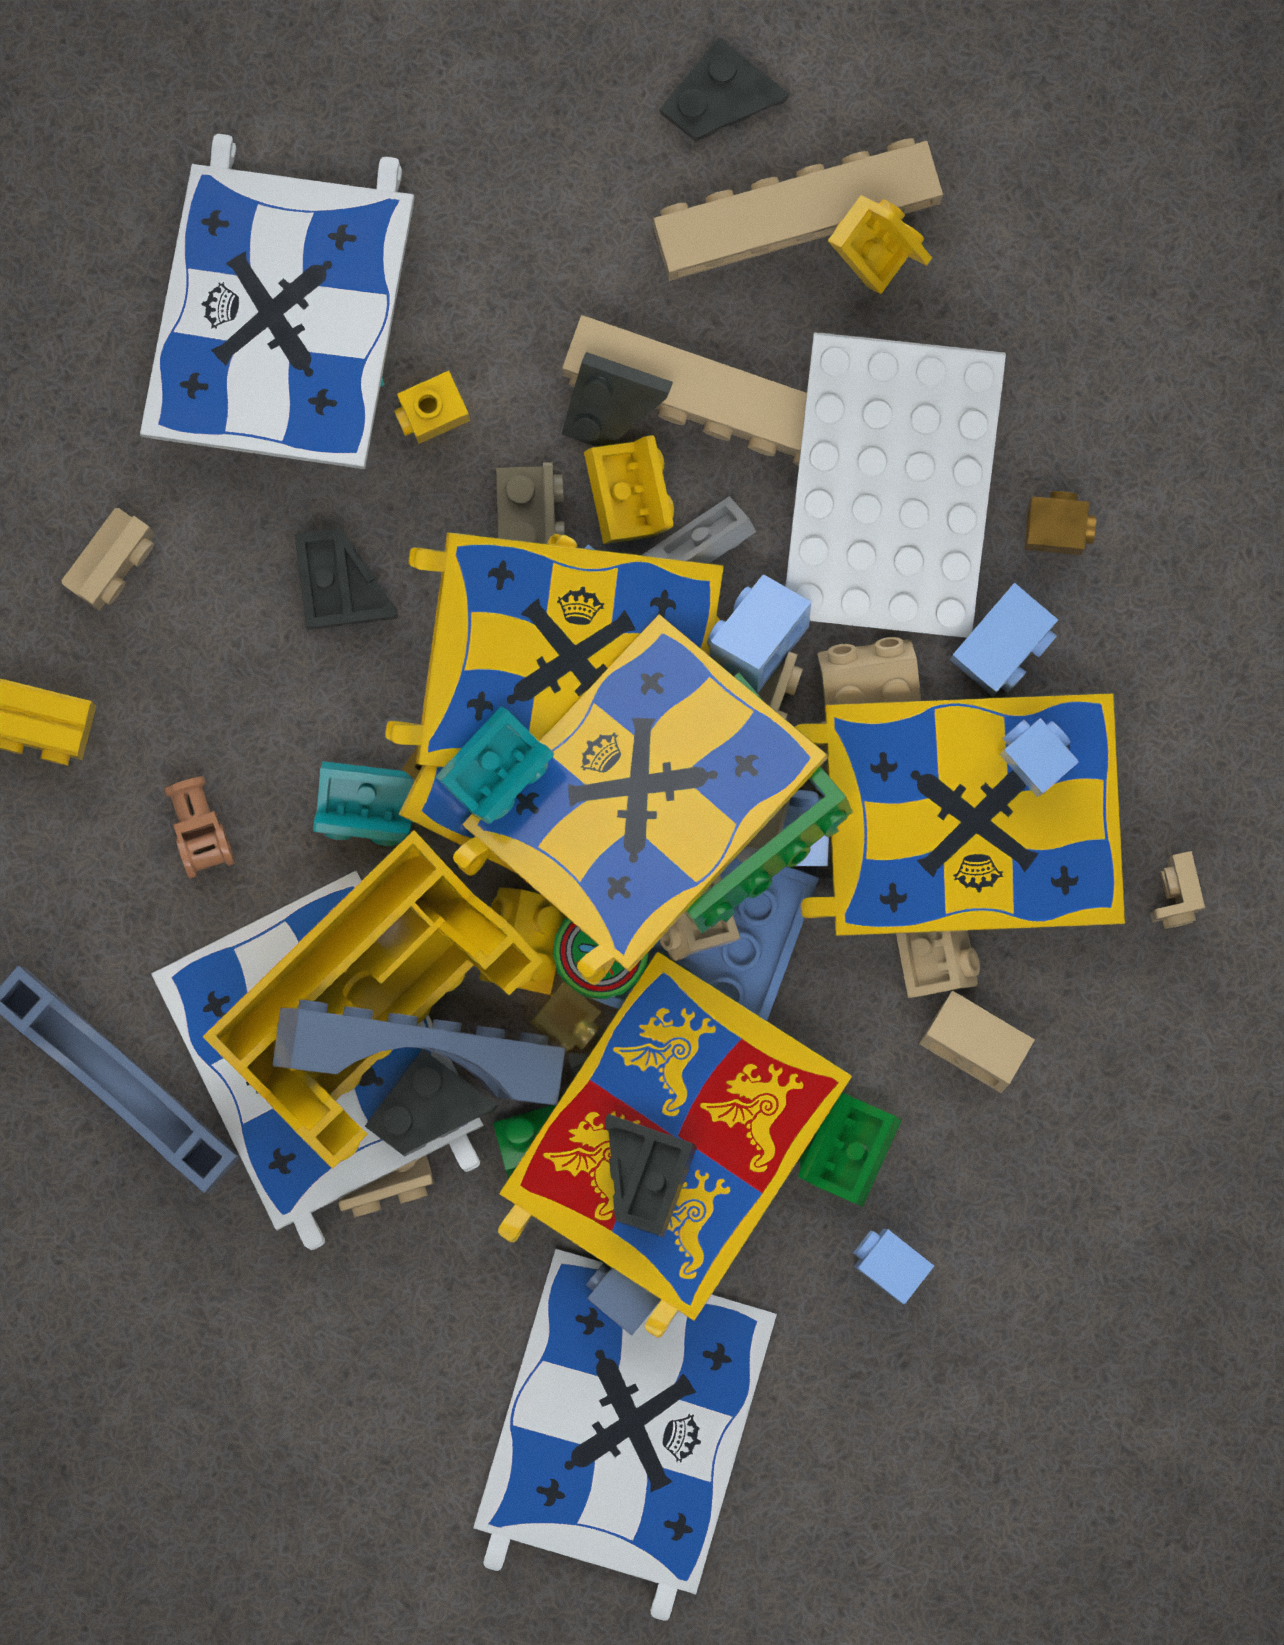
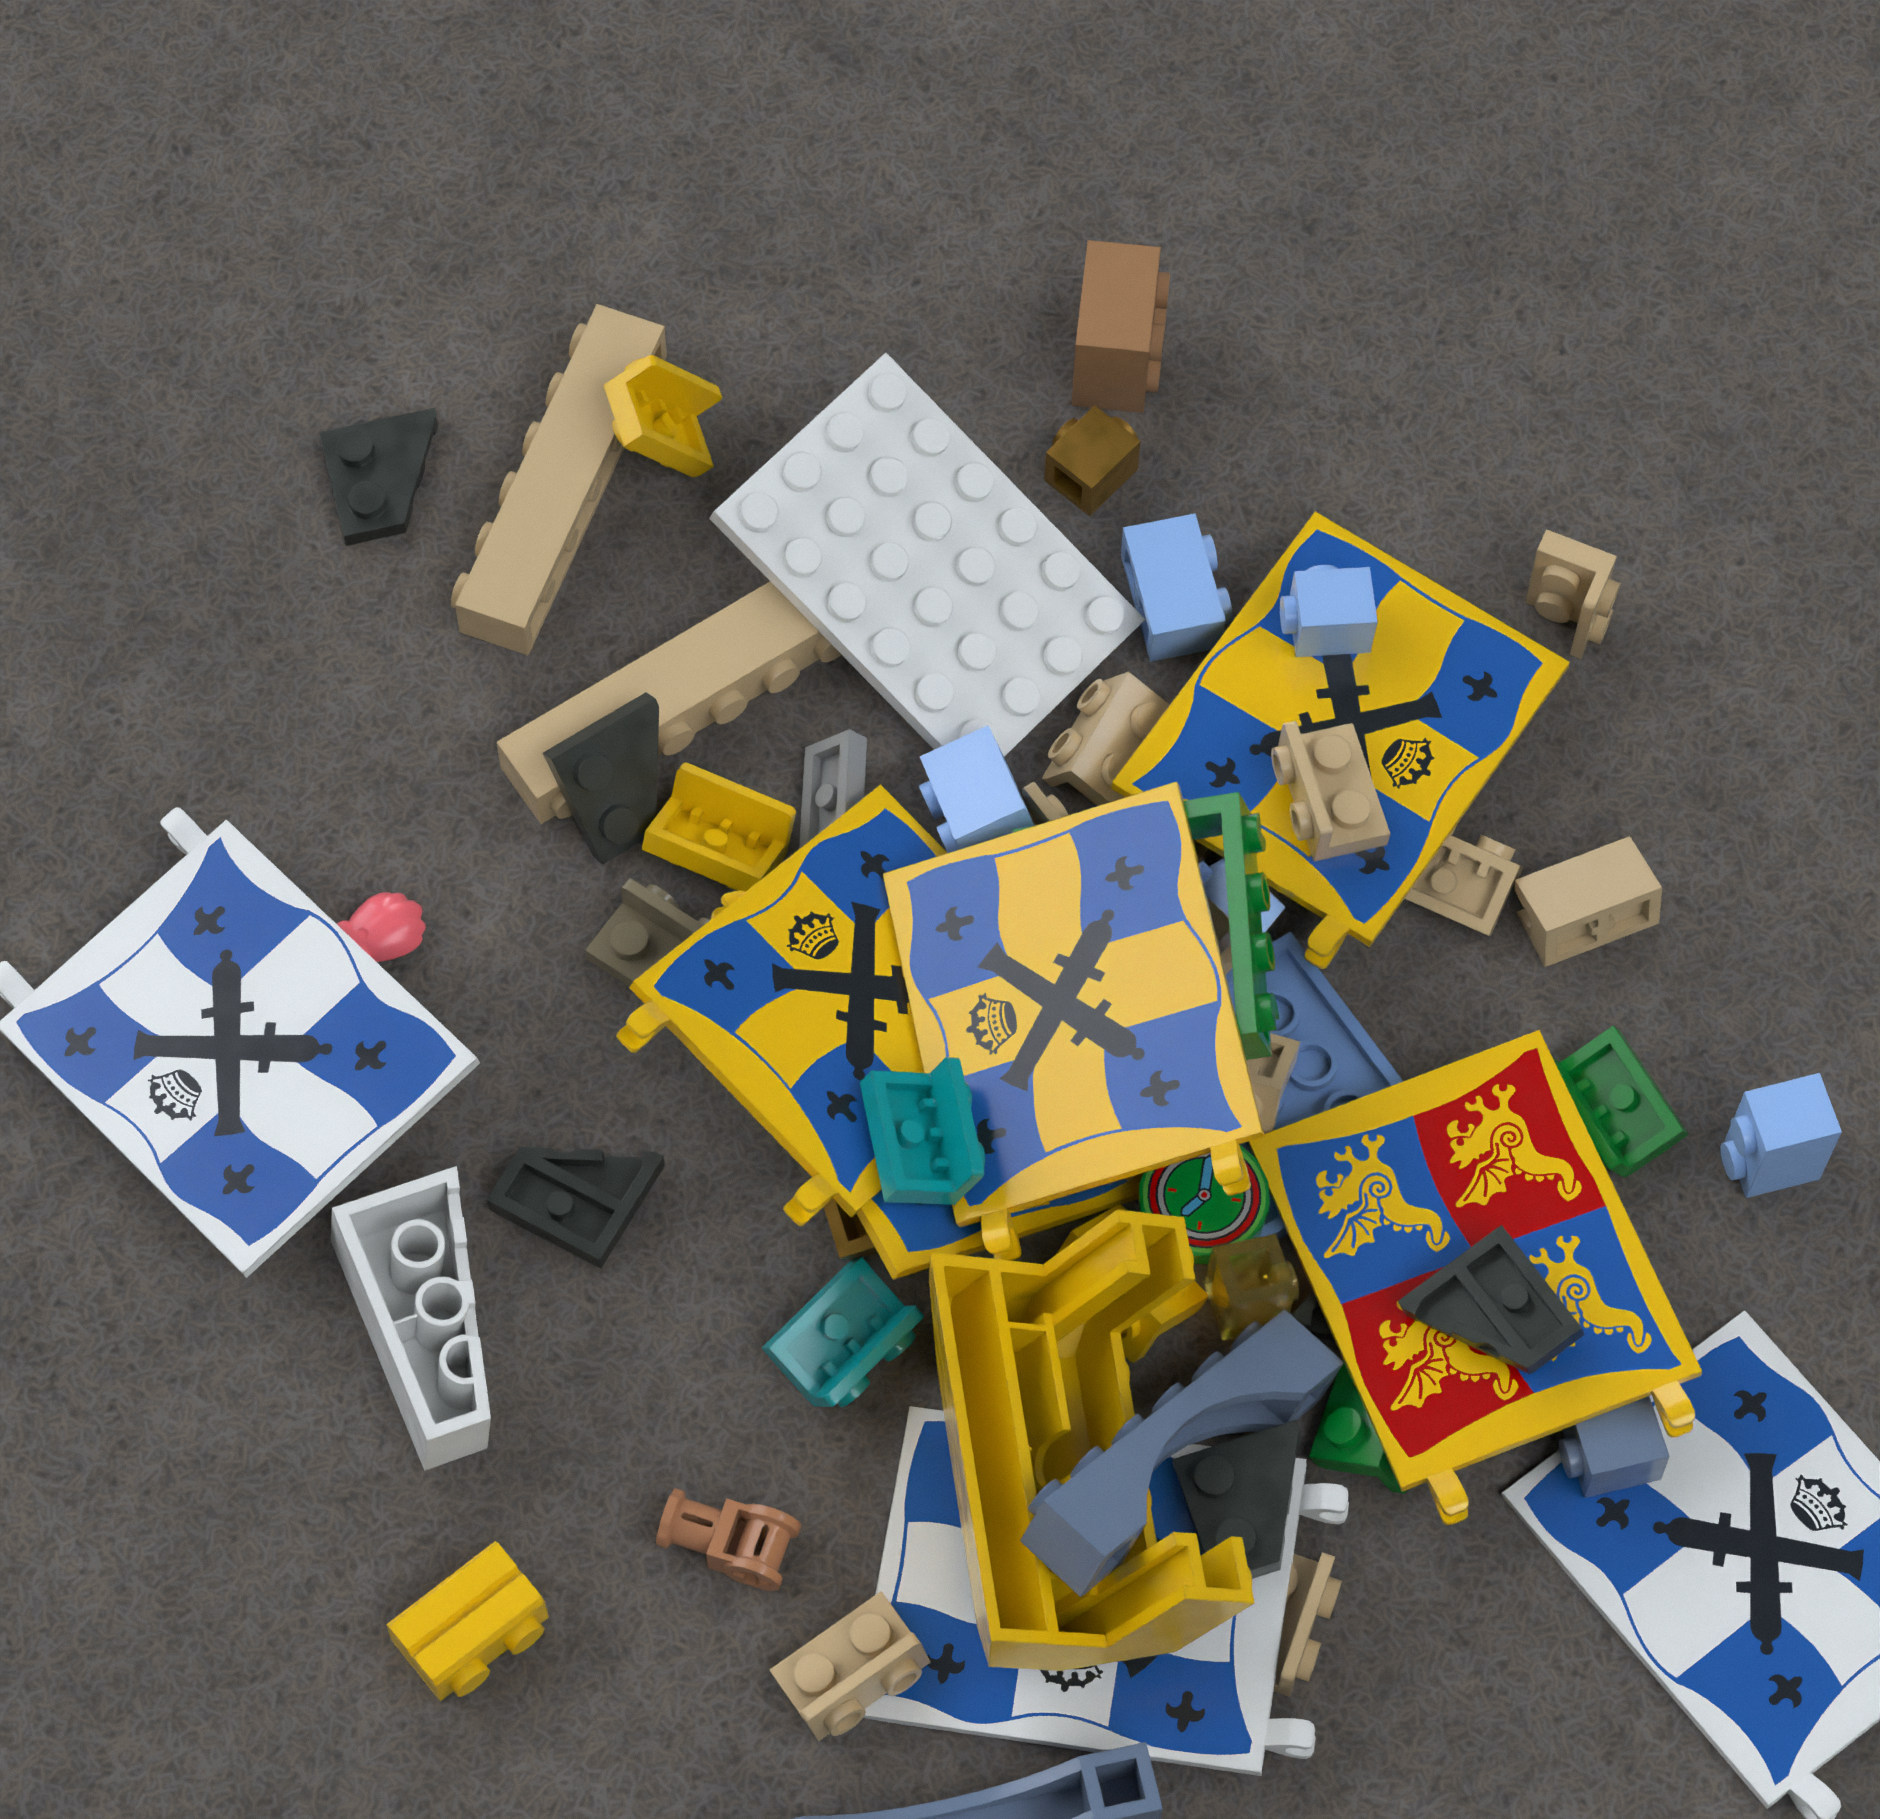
camera: 55 degrees left, 20 degrees down
(108, 558) = (345, 1415): tan bracket -> none
(172, 952) = (851, 1667): none -> tan bracket
(203, 543) = (420, 1309): none -> white wedge
(421, 337) = (386, 926): none -> coral animal
(431, 408) = (467, 965): yellow brick -> none
(916, 842) = (1330, 791): none -> tan bracket
(1156, 474) = (1120, 326): none -> medium nougat brick

